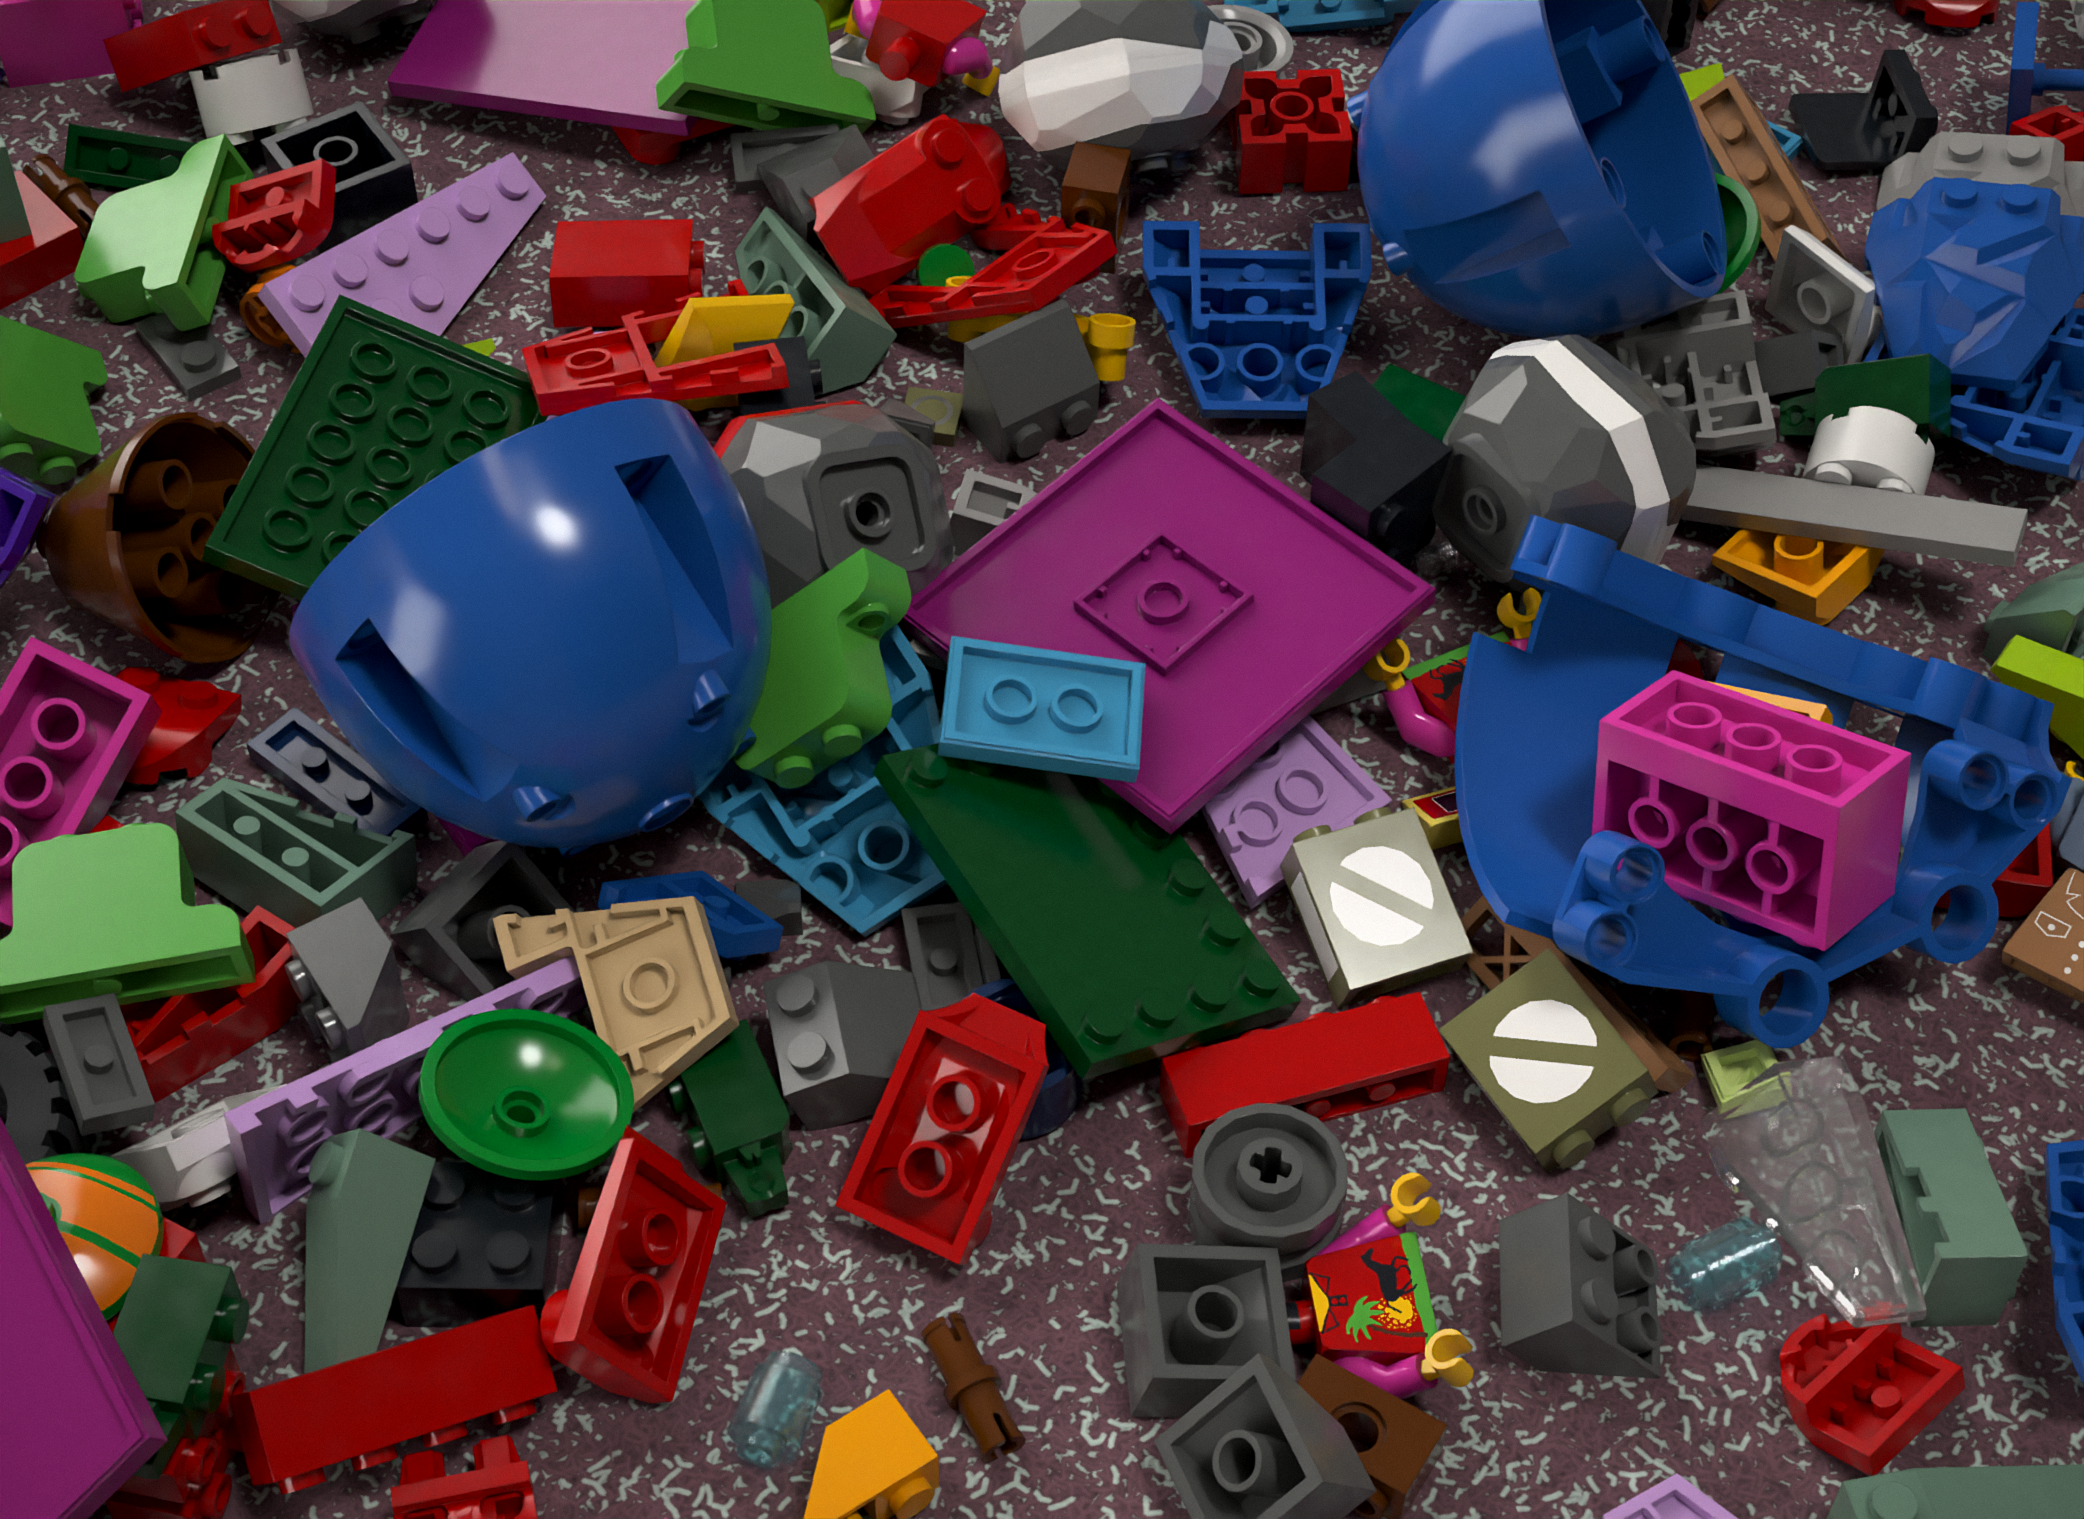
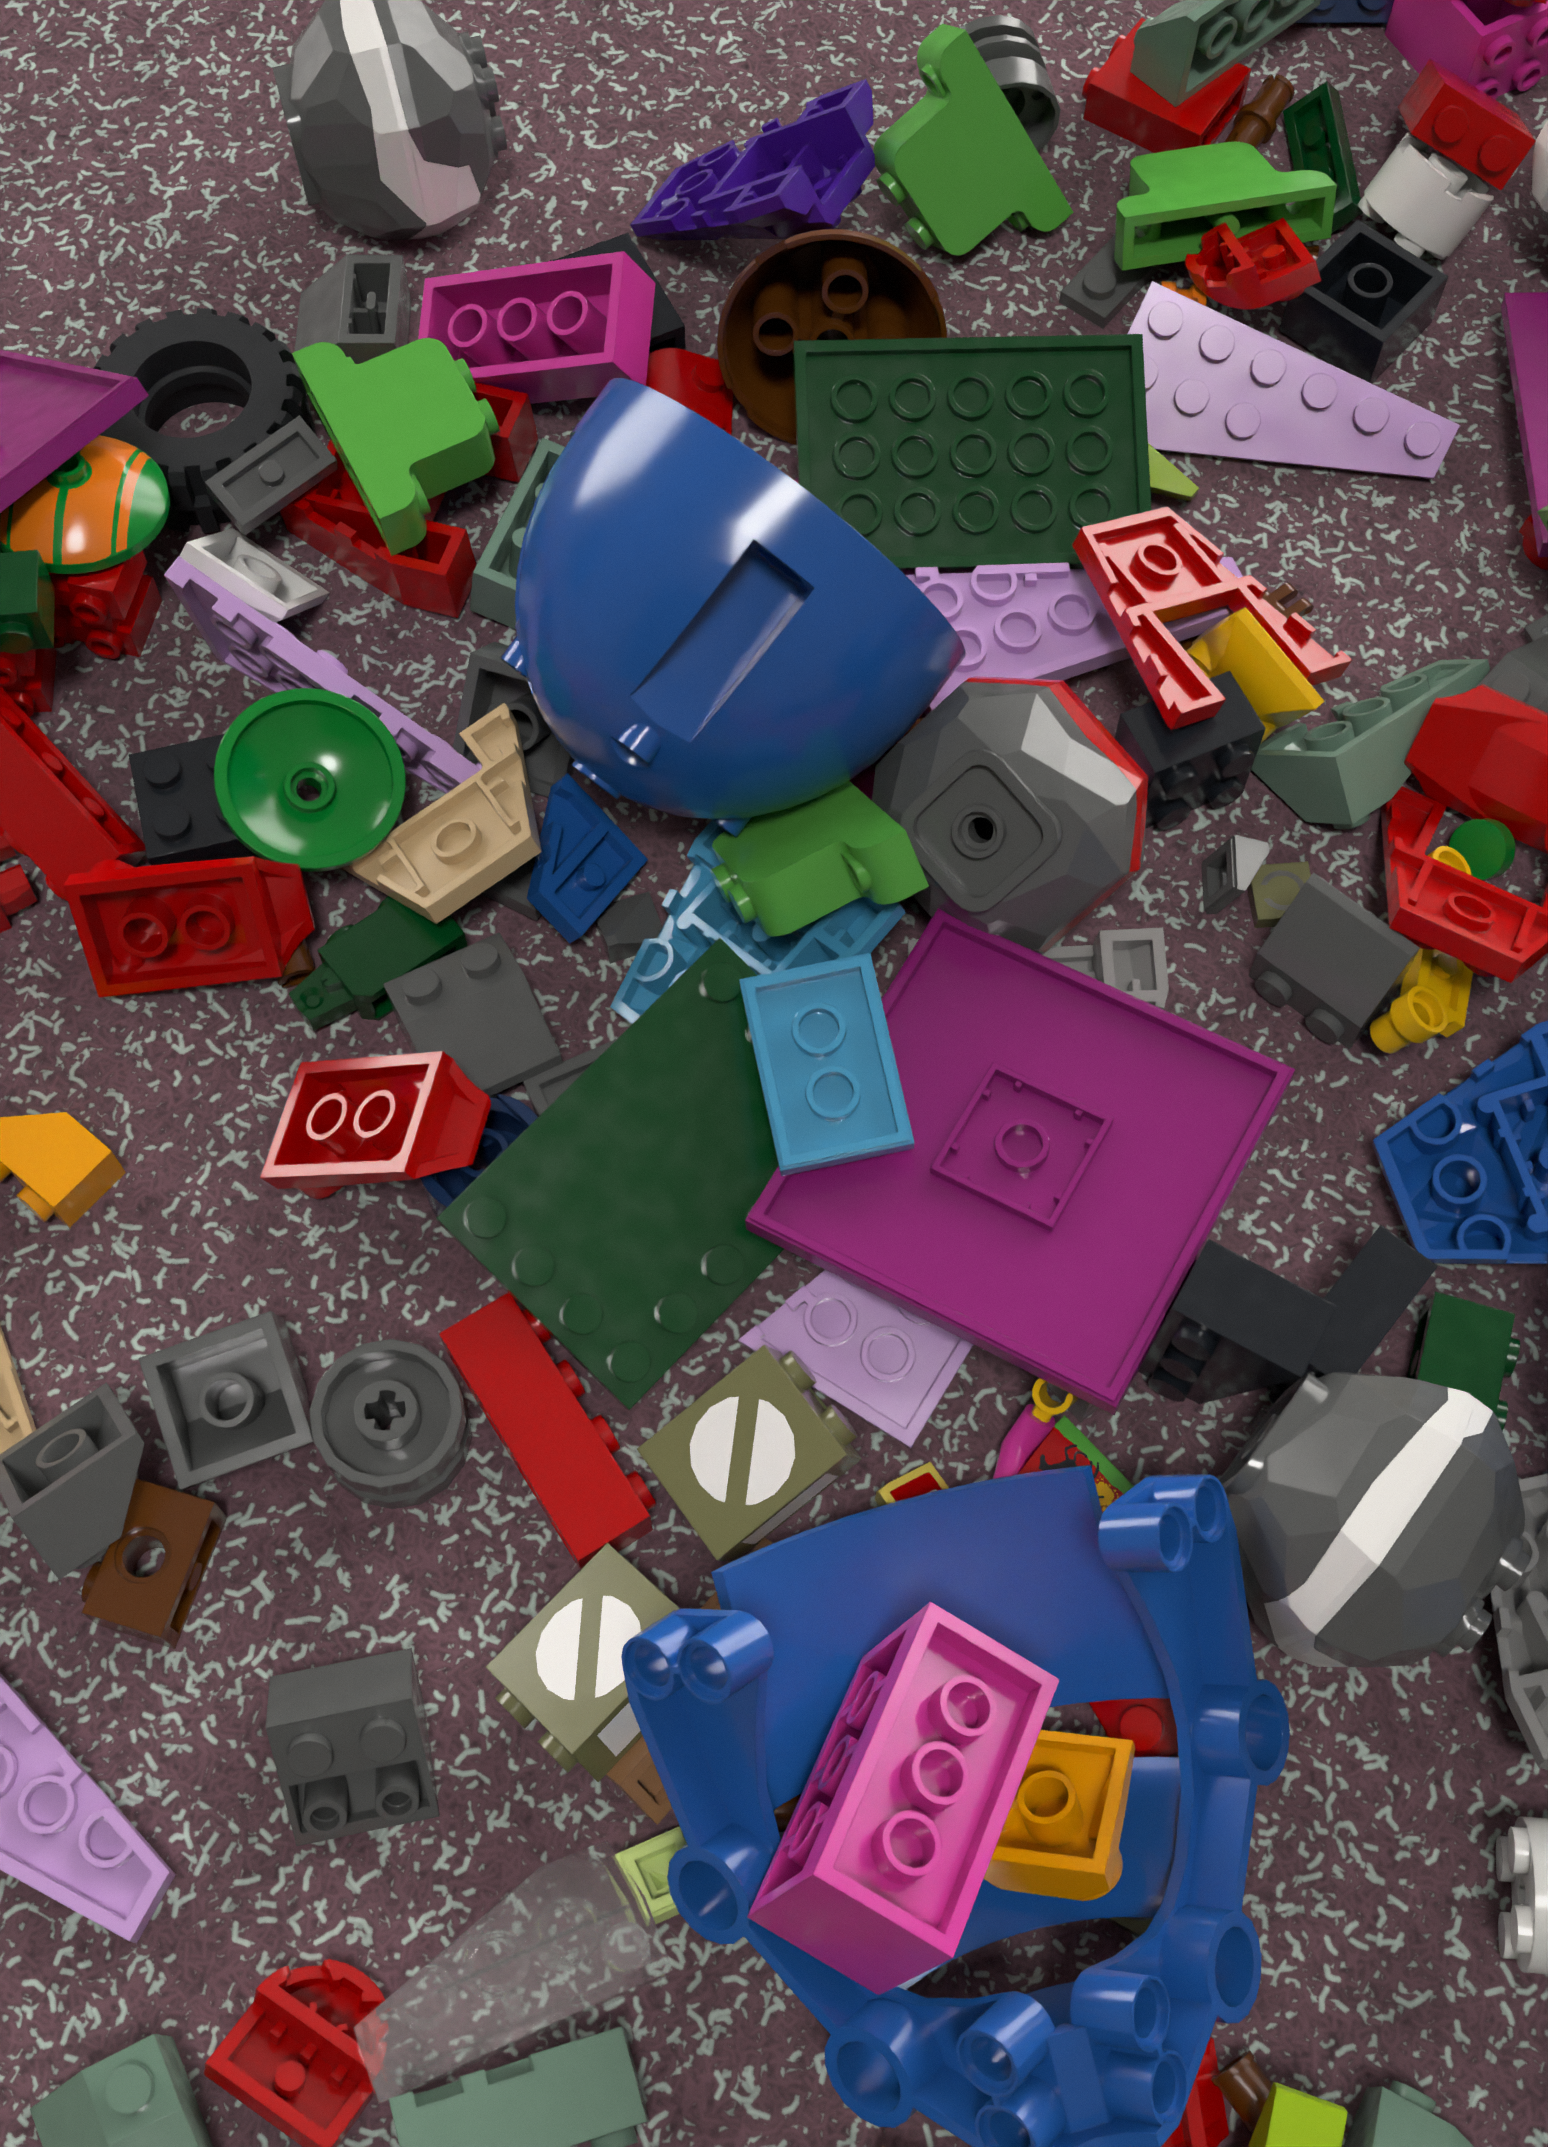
camera: 75 degrees right, 15 degrees up
(346, 980) = (408, 631): dark grey slope -> none
(357, 1240) = (164, 710): sand green wedge -> none
(622, 268) = (1343, 568): red brick -> none
(776, 1409) = (101, 1076): clear light blue brick -> none
(972, 1387) = (155, 1226): reddish brown pin -> none
(1372, 1303) = (287, 1550): torso -> none
(1727, 1263) = (424, 1889): clear light blue brick -> none
(1801, 573) = (1411, 1838): light orange slope -> none
(1857, 515) = (1472, 1875): light grey tile -> none

